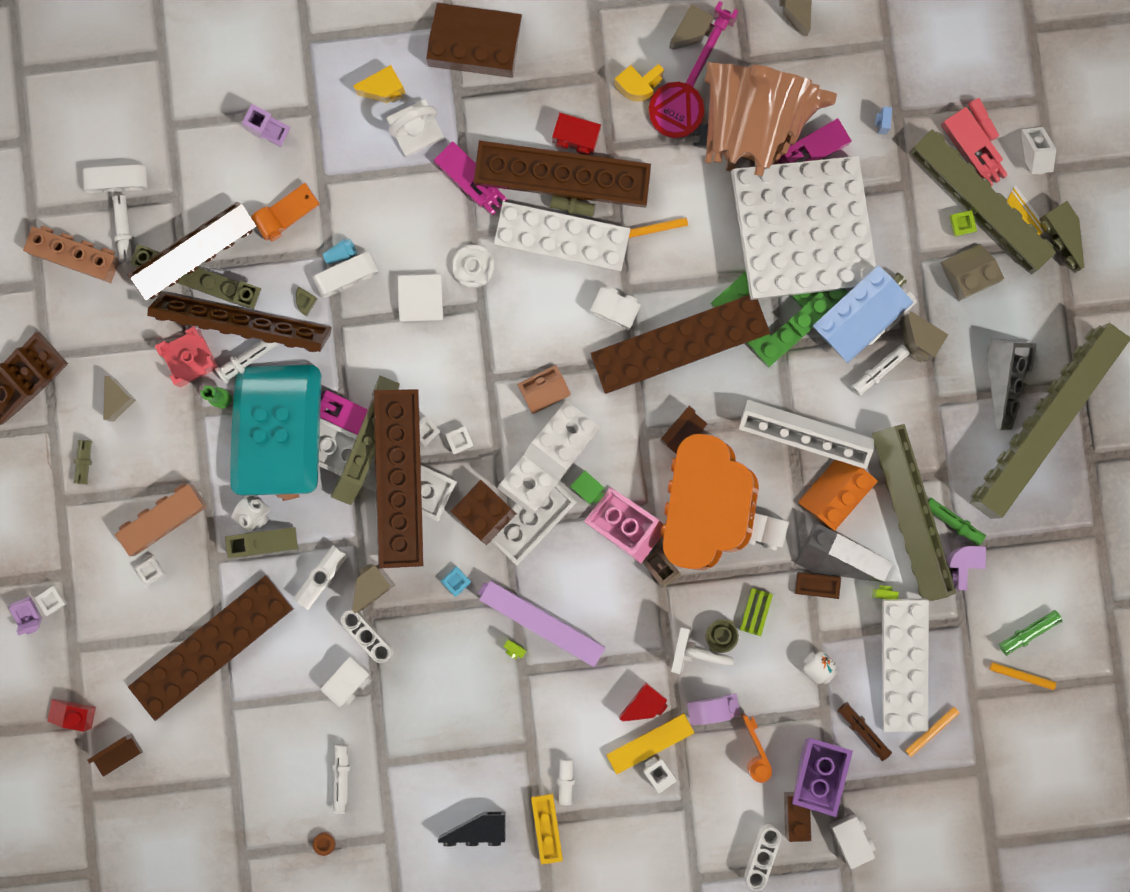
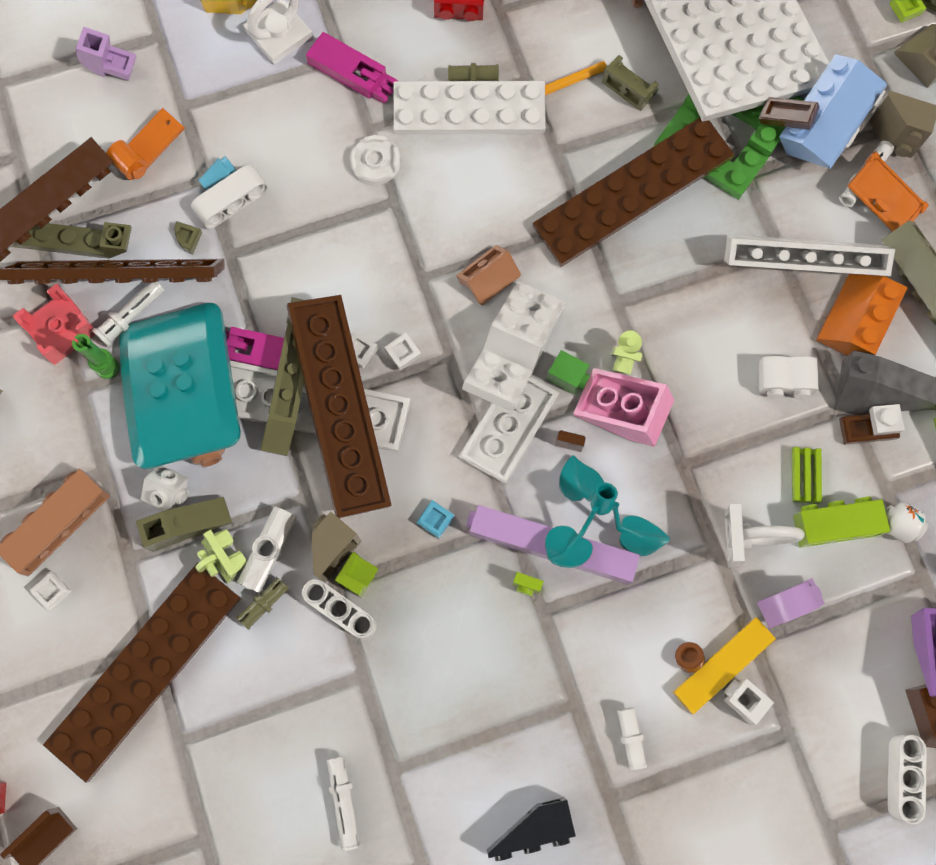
camera: 15 degrees left, 10 degrees down
(281, 565) = (215, 546): none -> yellowish green hips
(309, 617) = (262, 603): none -> olive pin
(346, 681) = (324, 674): white brick -> none
(386, 612) = (356, 574): none -> lime panel
(420, 297) = (321, 204): white slope -> none
(483, 512) = (451, 425): reddish brown brick -> none
(547, 828) = (624, 807): yellow plate -> none
(562, 174) = (453, 40): reddish brown plate -> none
(575, 543) = (570, 441): none -> reddish brown tile
(577, 578) = (568, 548): none -> teal plant
(615, 308) = (549, 168): white brick -> none
(625, 732) = (690, 657): none -> dark orange tile
(637, 484) = (626, 353): none -> yellowish green hips
(644, 705) = (705, 615): red slope -> none
(661, 567) = (681, 447): dark tan slope -> none
(685, 426) = (662, 287): reddish brown panel -> none
(703, 244) = (628, 84): none -> olive hinge
(708, 504) = (720, 353): orange brick -> none
(722, 636) = (776, 509): olive hat -> none
(759, 766) = (870, 660): orange door -> none
(770, 656) = (841, 521): none -> lime brick
(823, 309) = (789, 113): none -> tile
(830, 583) = (886, 419): none -> white plate
(894, 399) = (890, 192): none -> orange door

